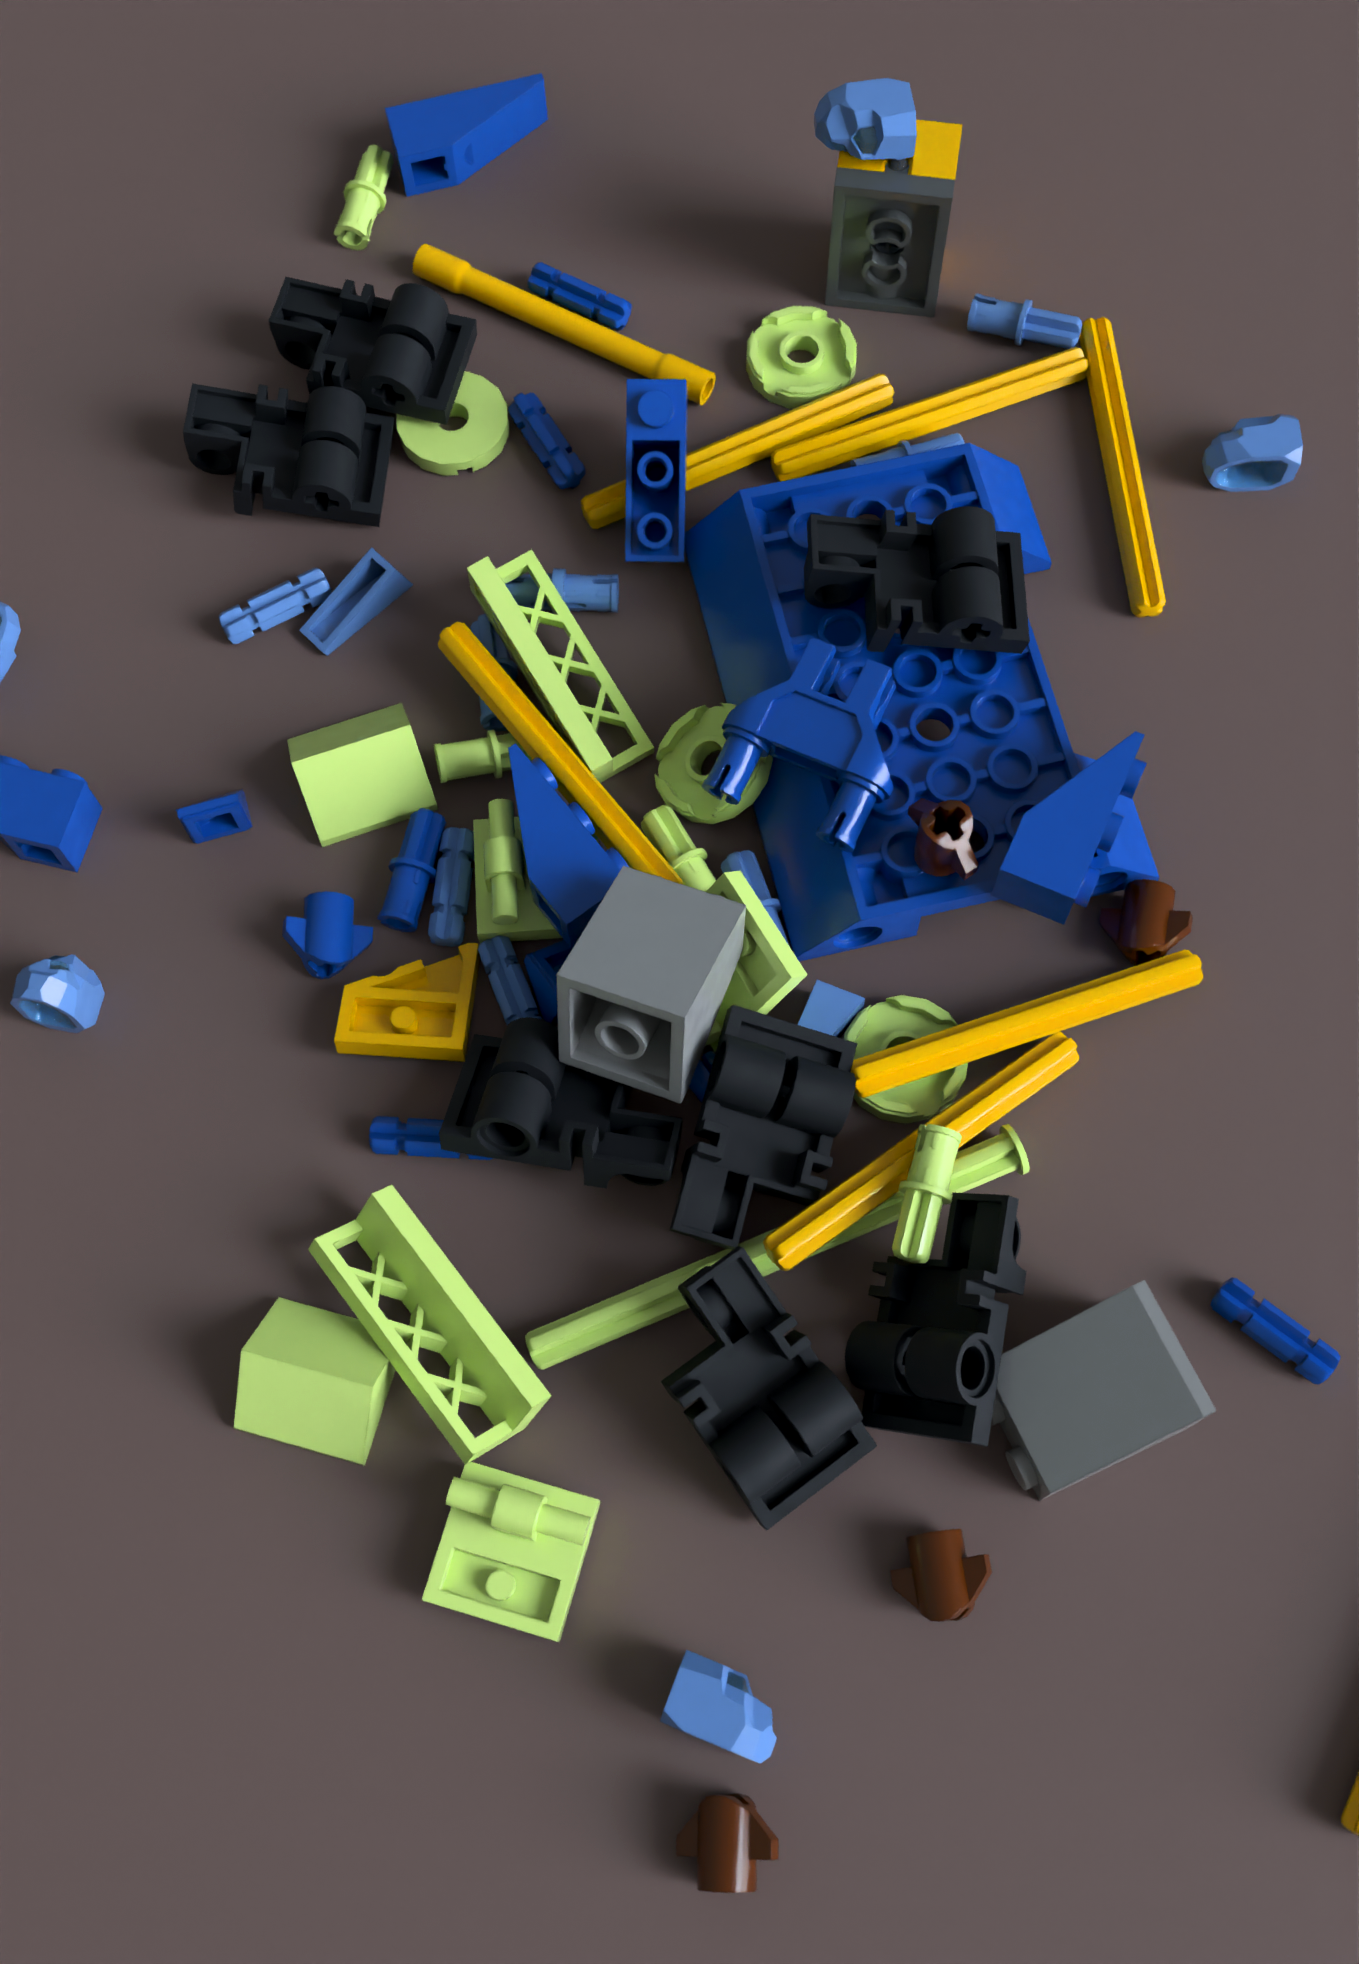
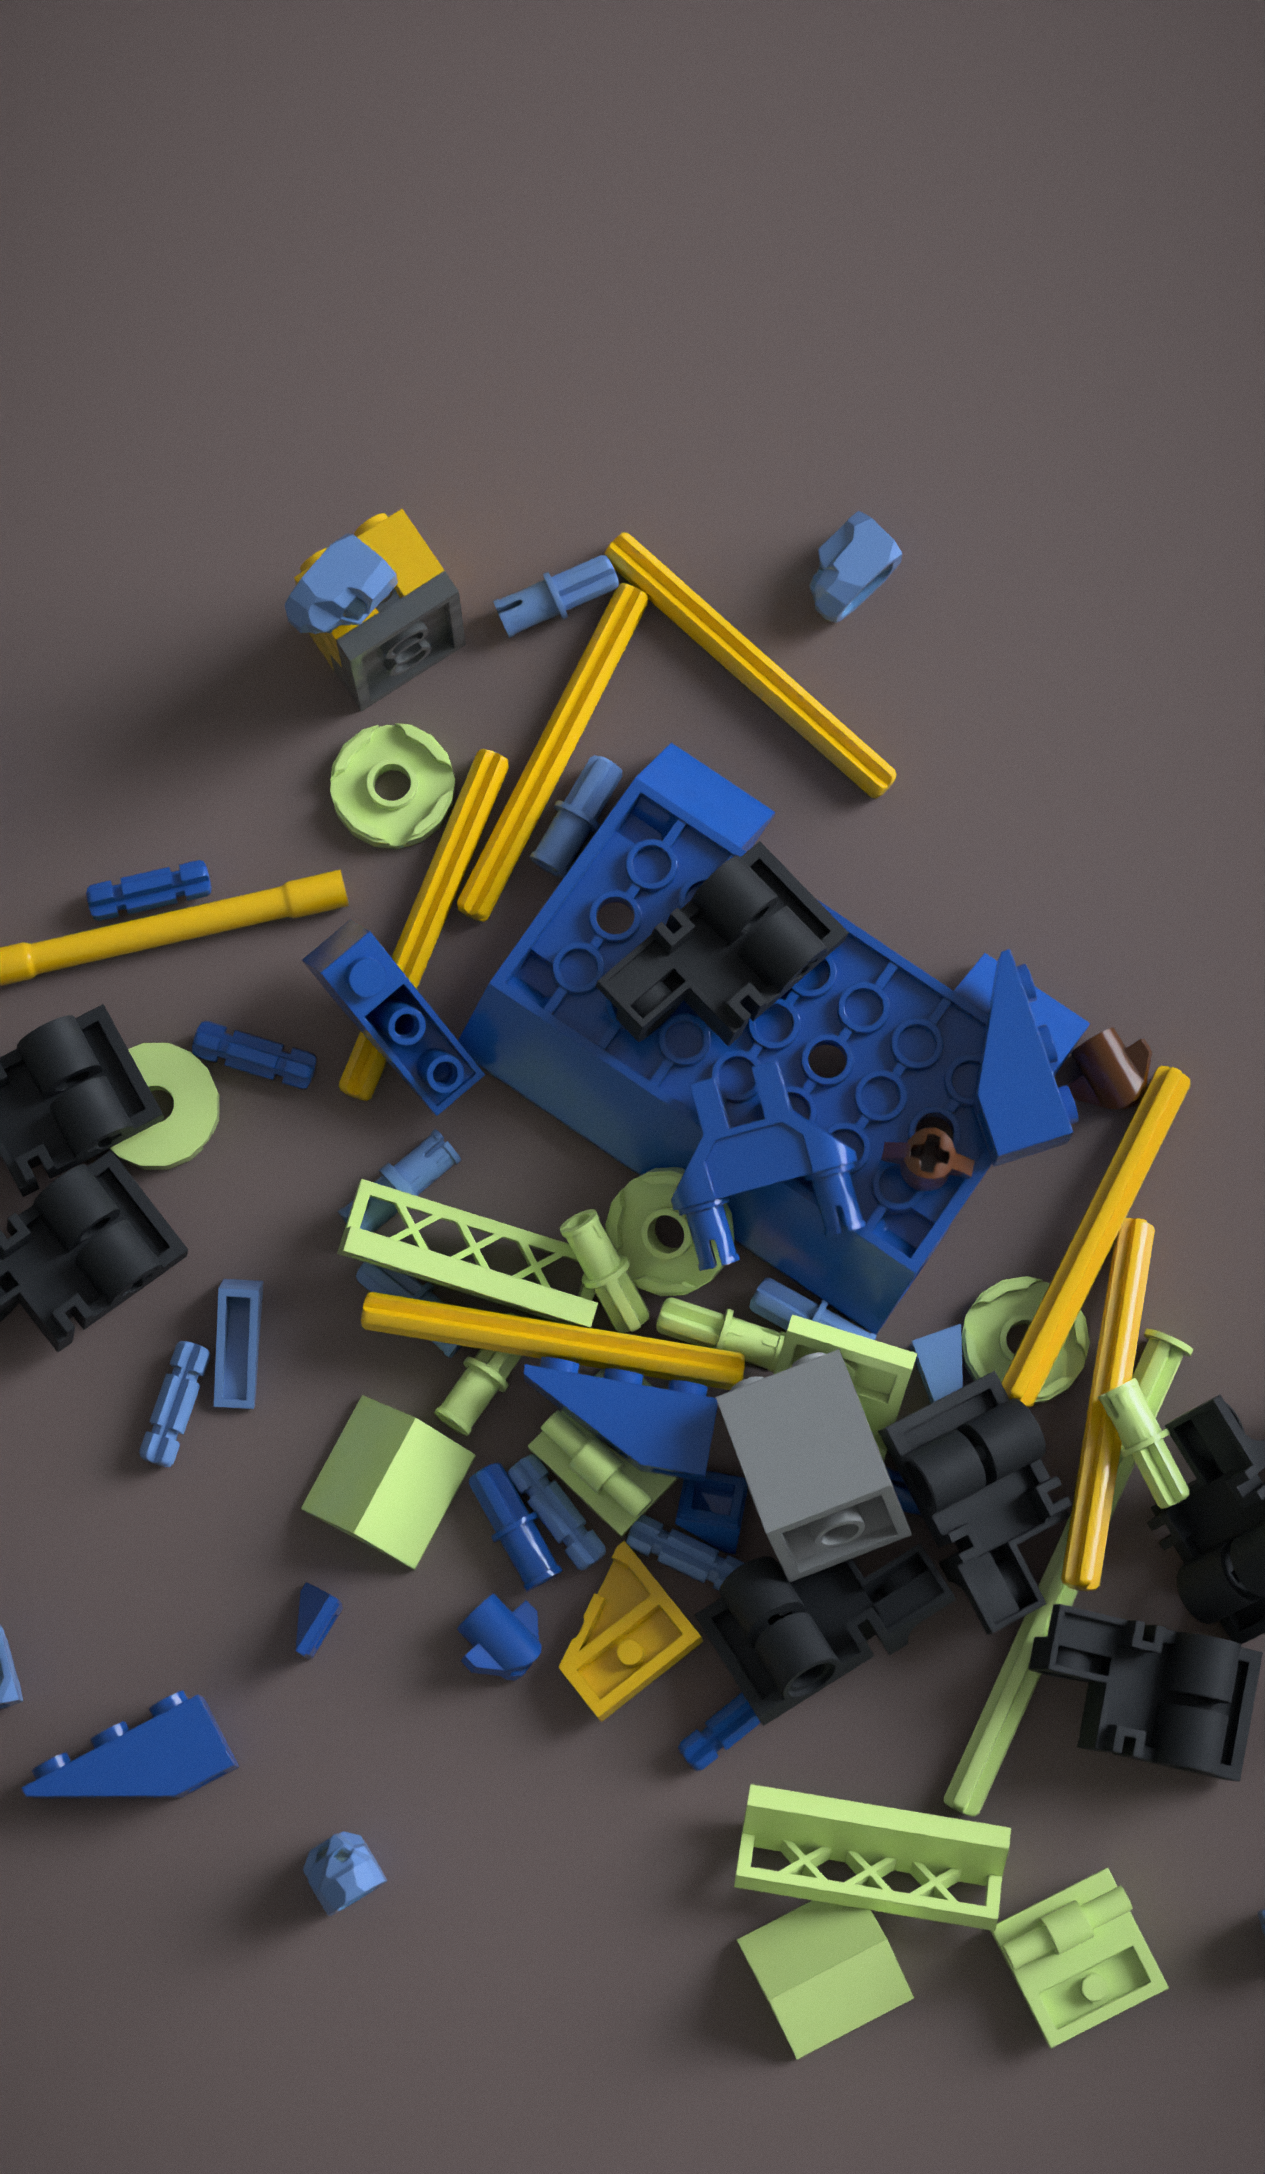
camera: 45 degrees left, 10 degrees up
(640, 750) = (605, 1271): none -> yellowish green axle

